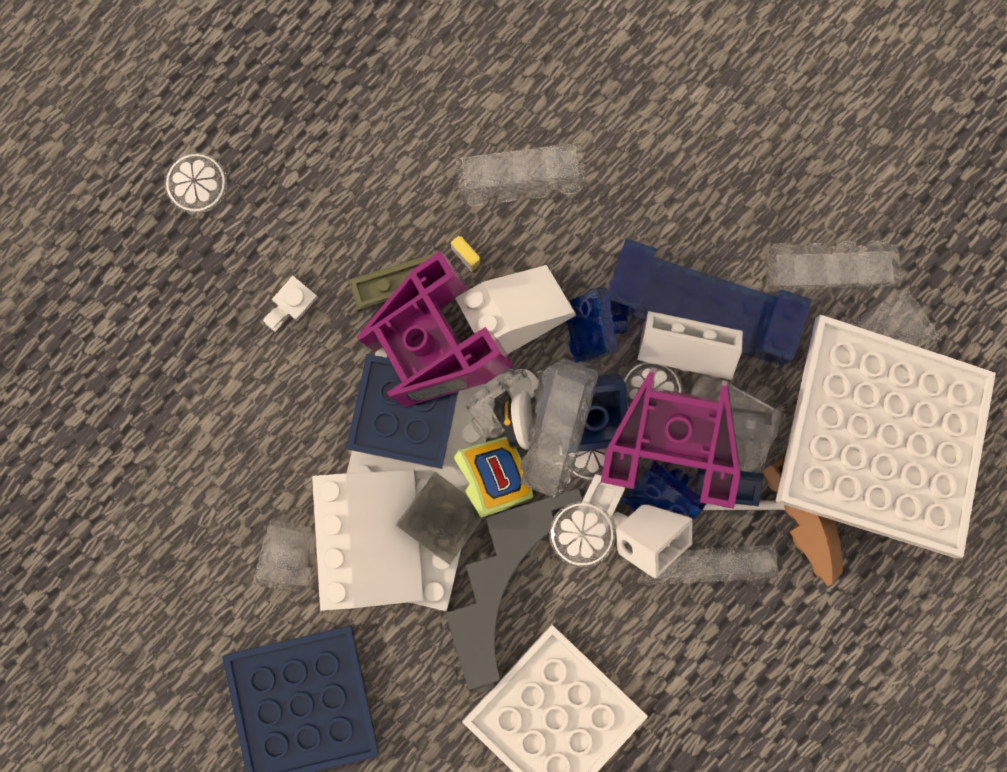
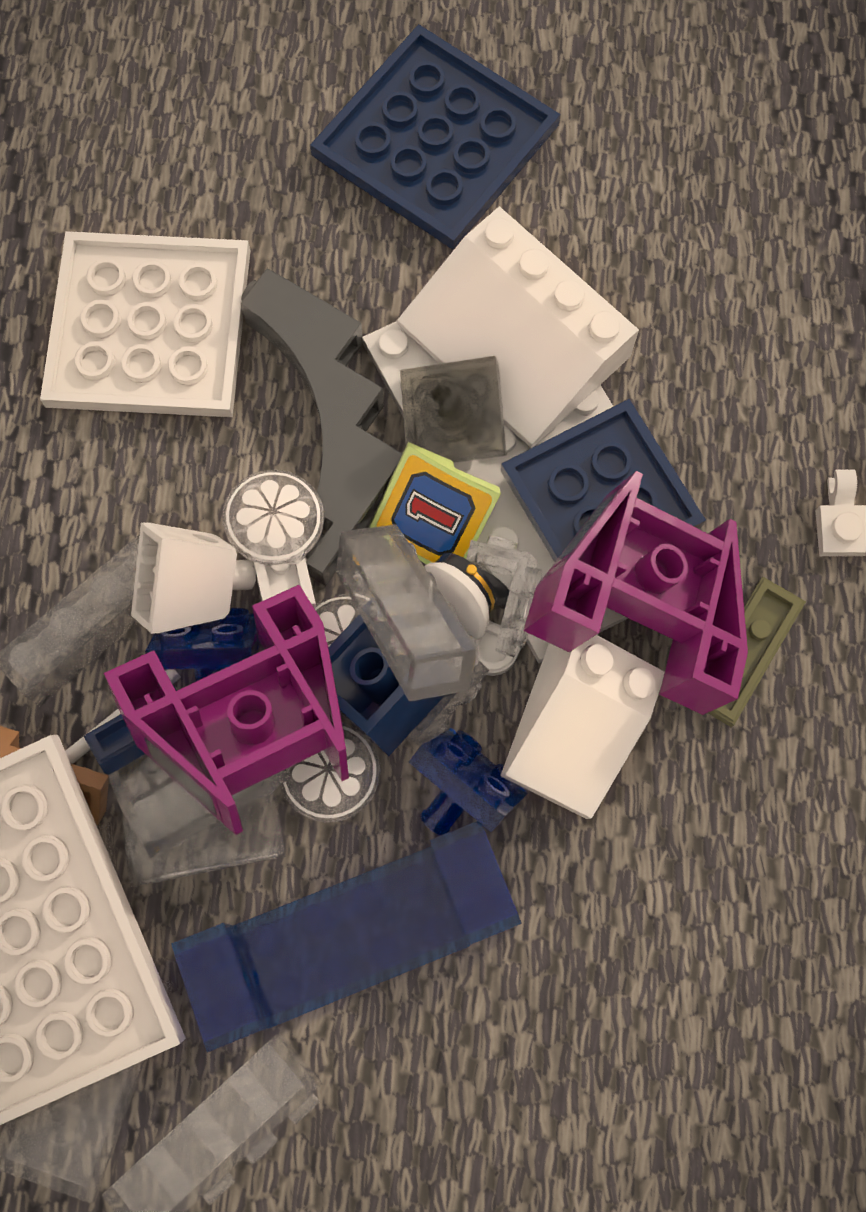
camera: 145 degrees right, 10 degrees down
(286, 556) = (593, 239): clear slope -> none
(465, 253) = (701, 746): light yellow tile -> none
(521, 173) = (728, 910): clear brick -> none
(690, 345) = (324, 863): white brick -> none

